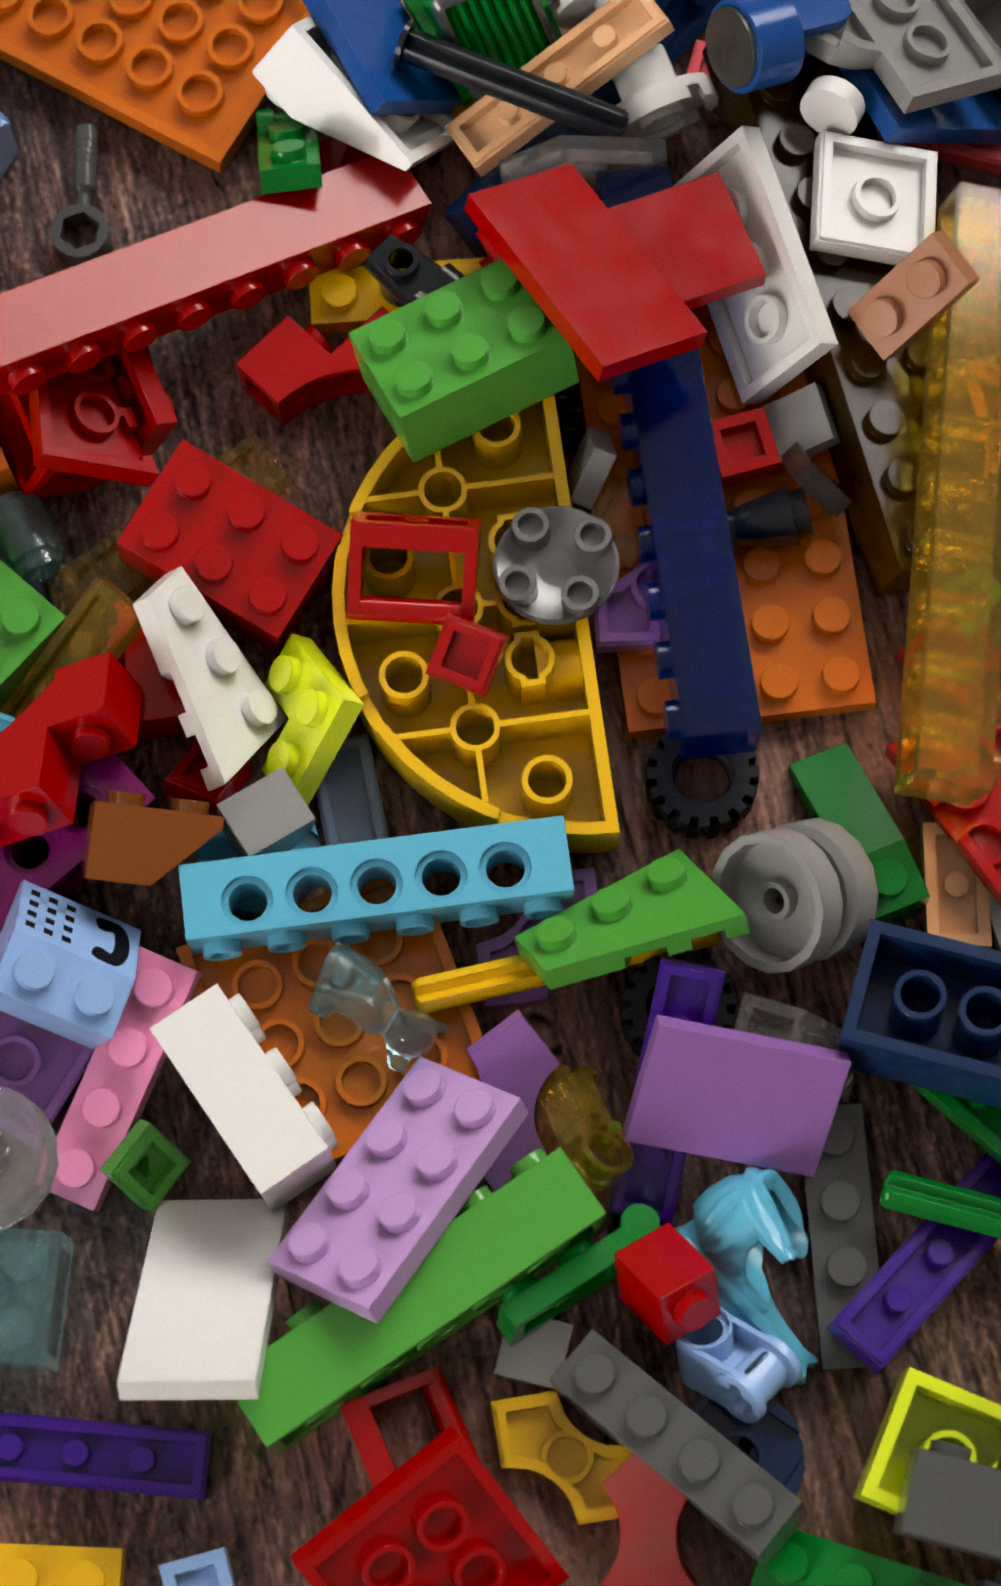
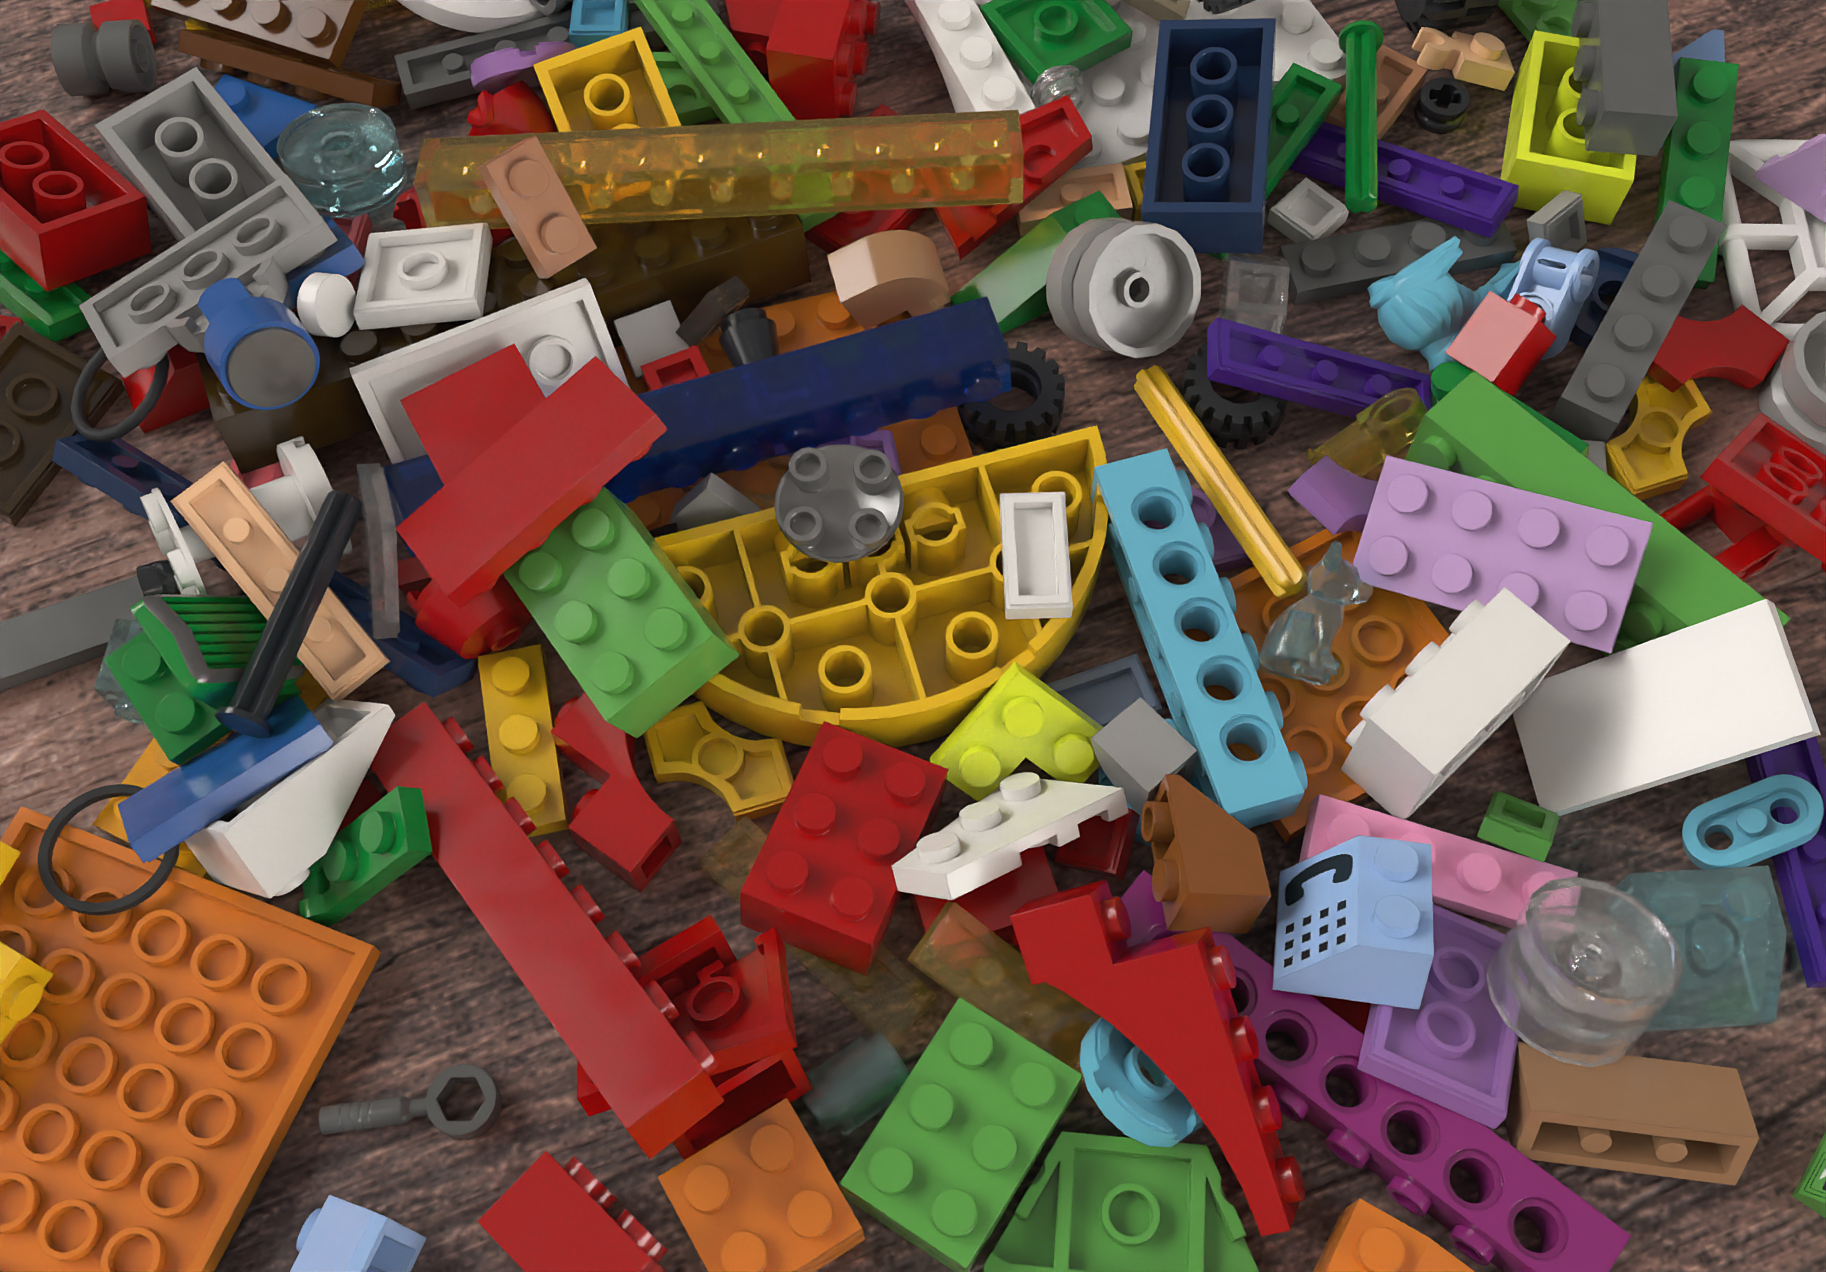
camera: 100 degrees left, 10 degrees down
(95, 1391) = (1748, 822): none -> medium azure plate
(332, 478) = (744, 772): none -> yellow tile
(412, 533) = (828, 636): red tile -> none
(418, 278) = (528, 691): black plate -> none
(467, 654) = (948, 567): red tile -> none
(473, 741) = (1035, 555): none -> white tile
(641, 913) = (1178, 403): bright green wing -> none
(735, 1096) = (1324, 304): medium lavender tile -> none
(837, 1418) = (1560, 222): none -> light grey tile
(839, 665) = (889, 276): none -> medium nougat brick
(911, 1146) = (1307, 213): none -> white tile

